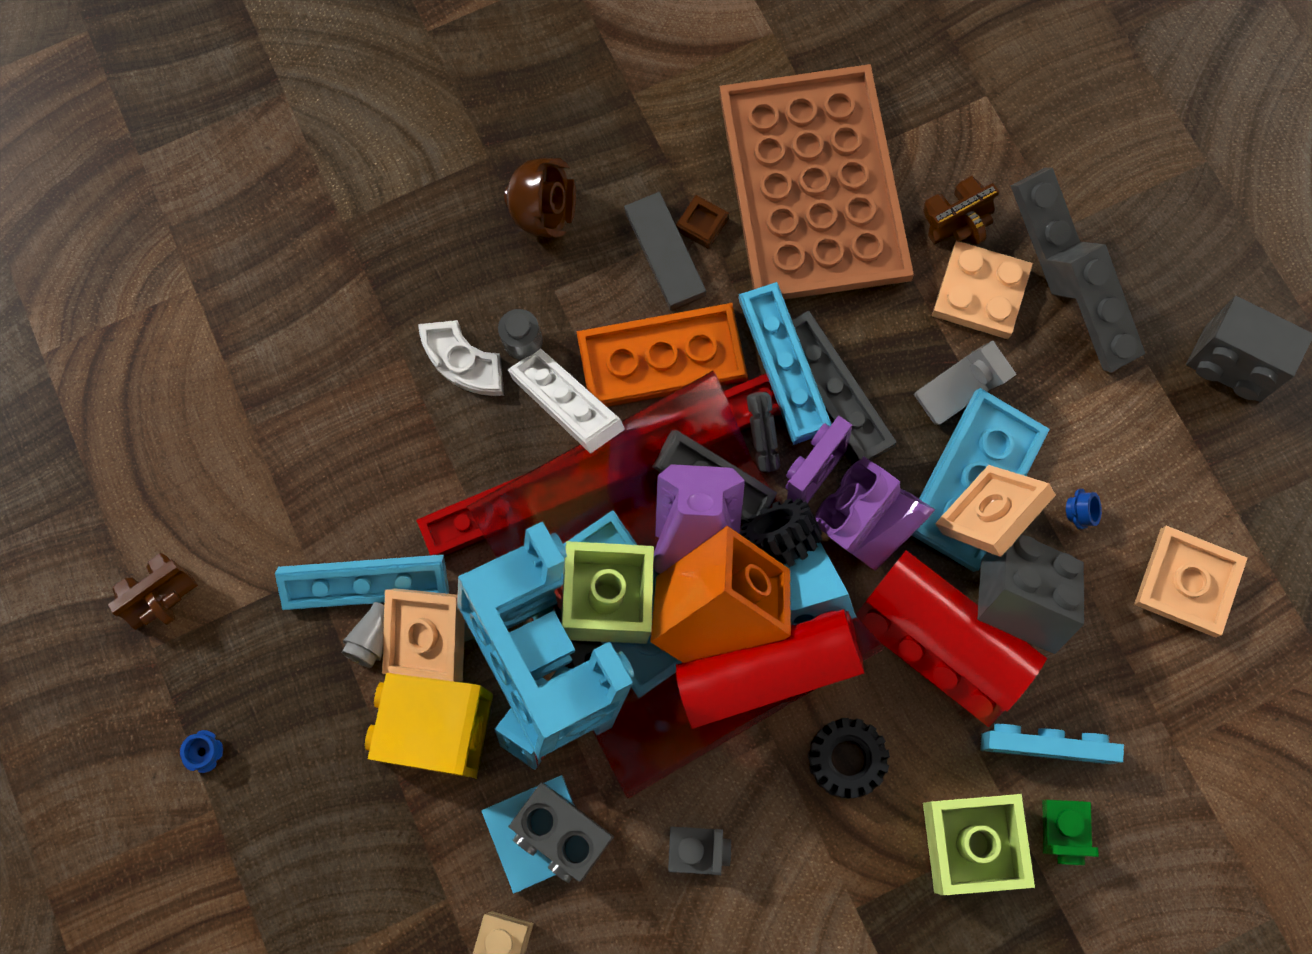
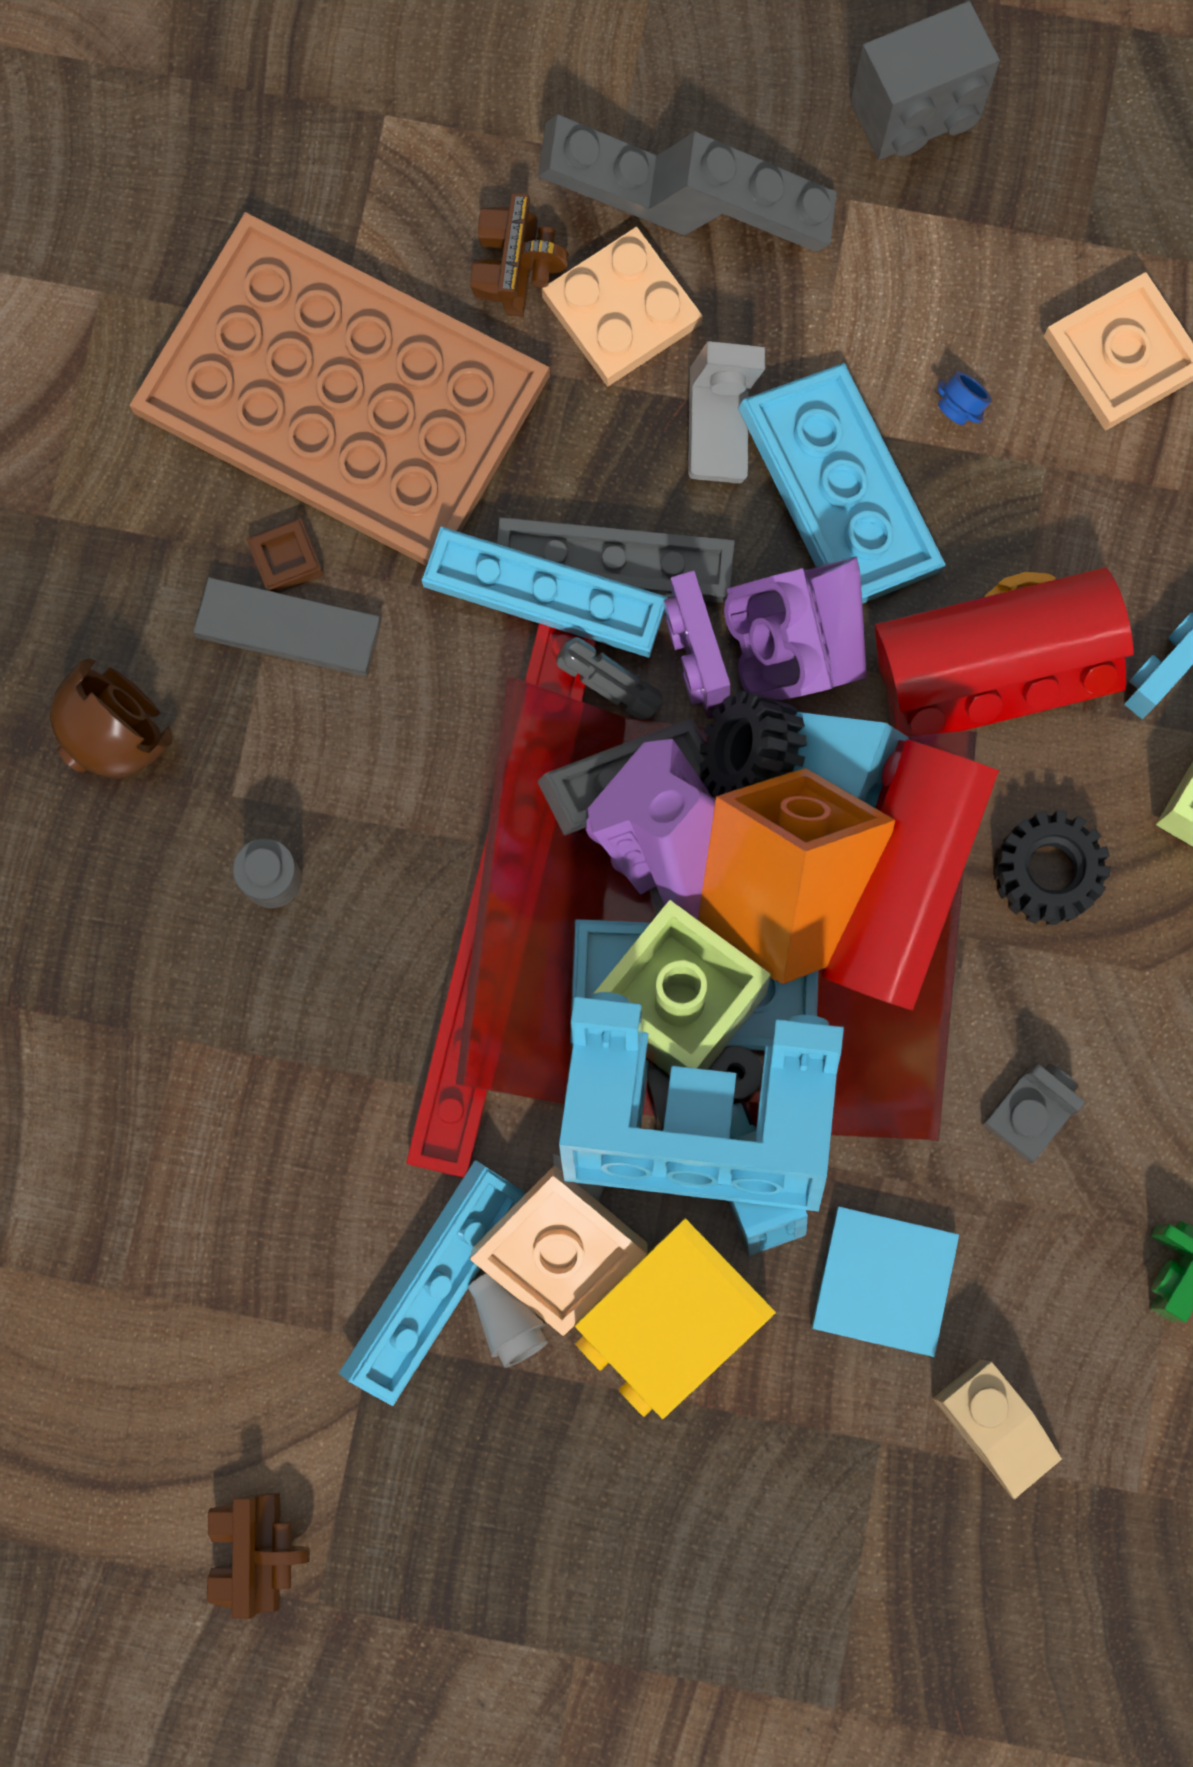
camera: 60 degrees left, 5 degrees up
(190, 751) = (493, 1640): blue plate -> none
(461, 362) = (235, 972): white tile -> none
(566, 400) = (402, 876): white tile -> none
(567, 822) = (907, 1236): dark grey brick -> none
(661, 354) = (417, 729): orange tile -> none
(995, 509) = (904, 492): light nougat plate -> none
(1033, 593) = (1020, 525): dark grey brick -> none

